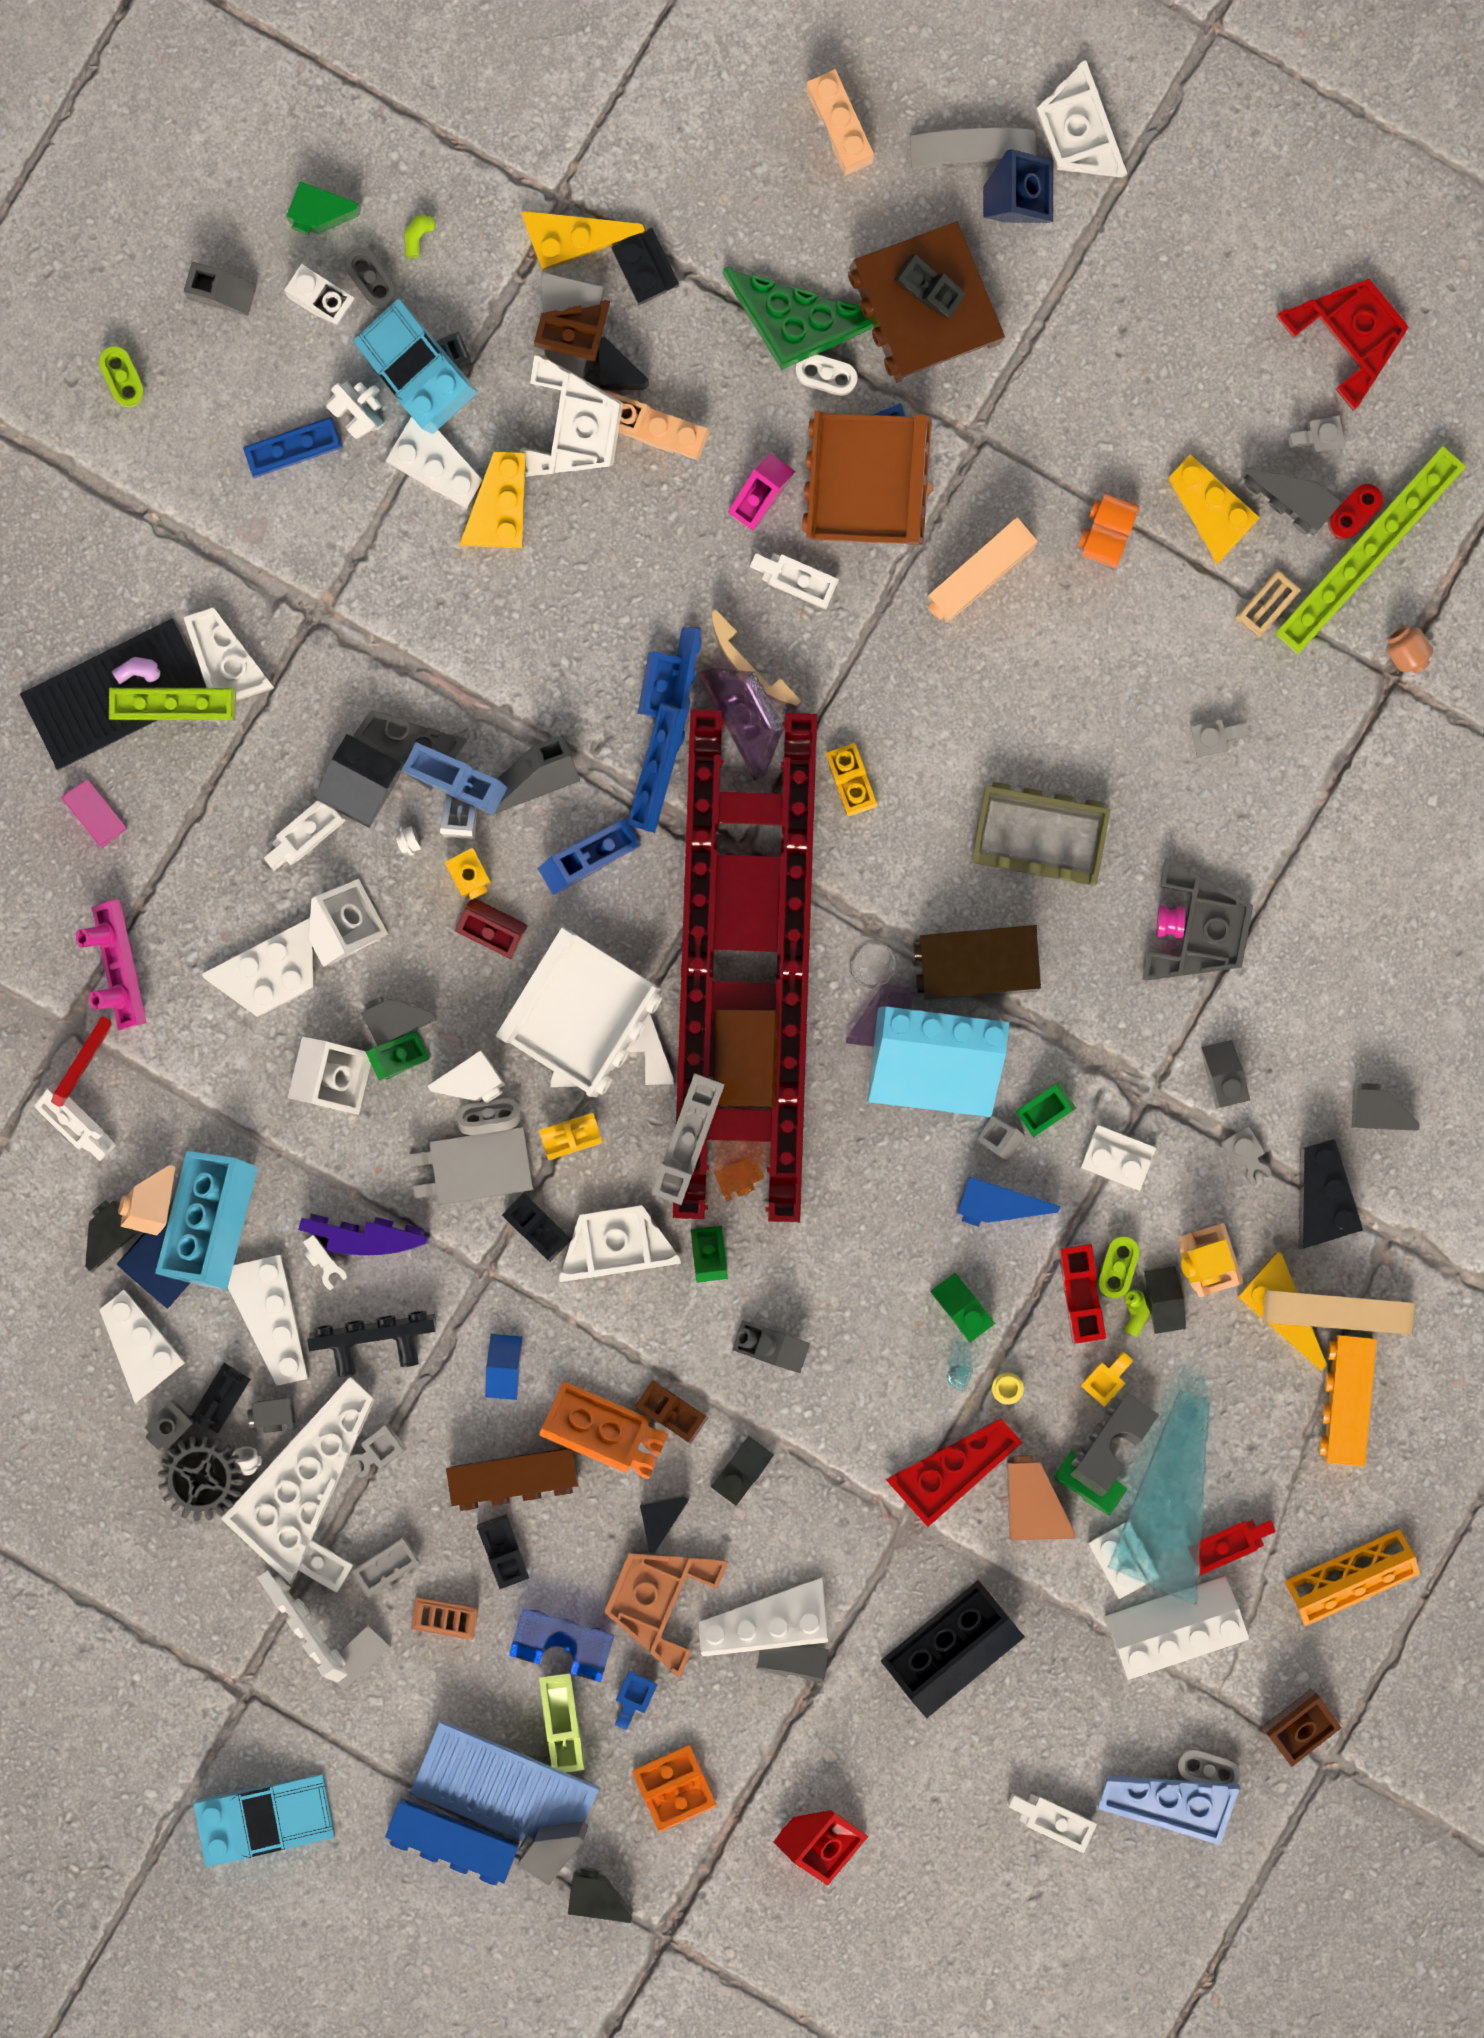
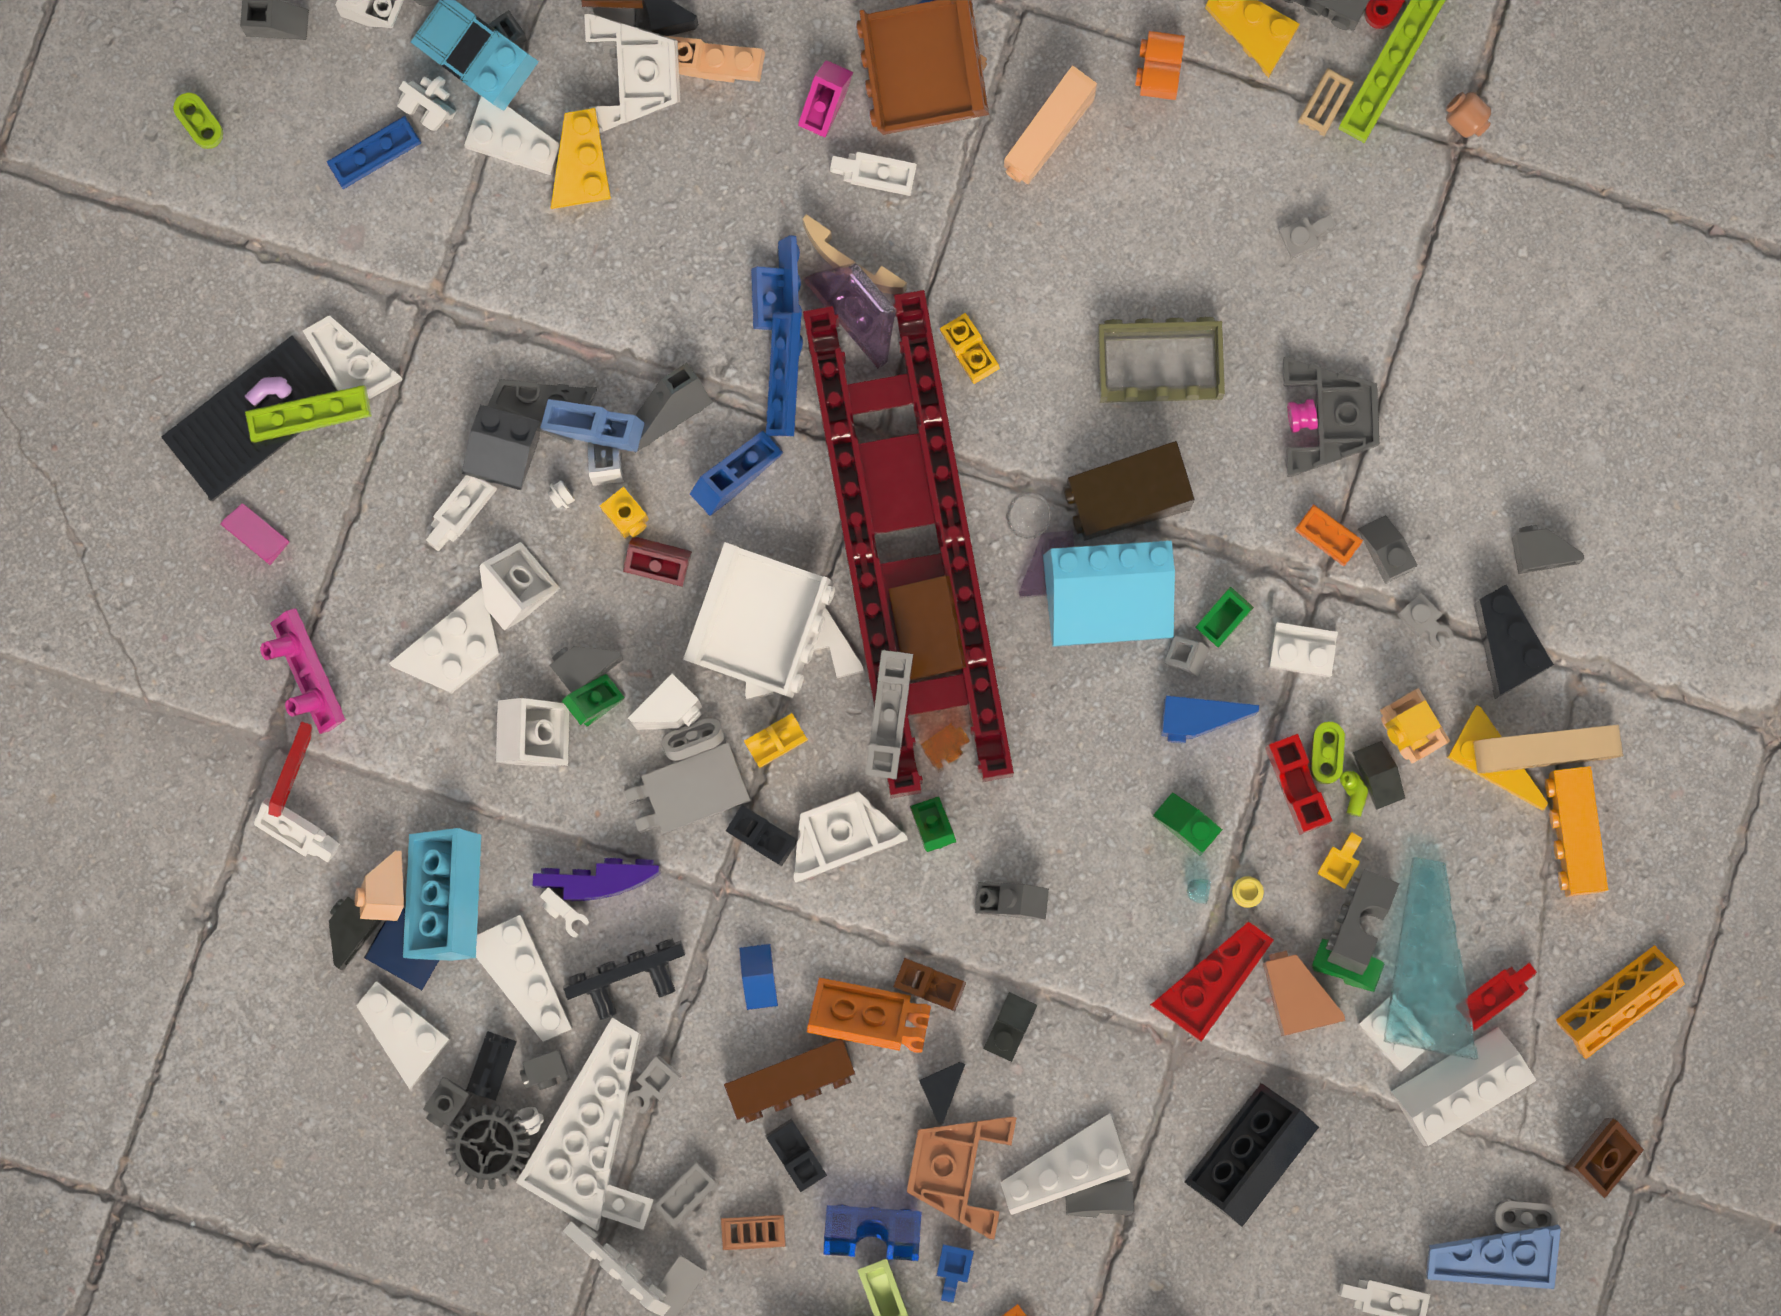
camera: 10 degrees left, 5 degrees down
(1169, 1048) = (1328, 535): none -> orange plate

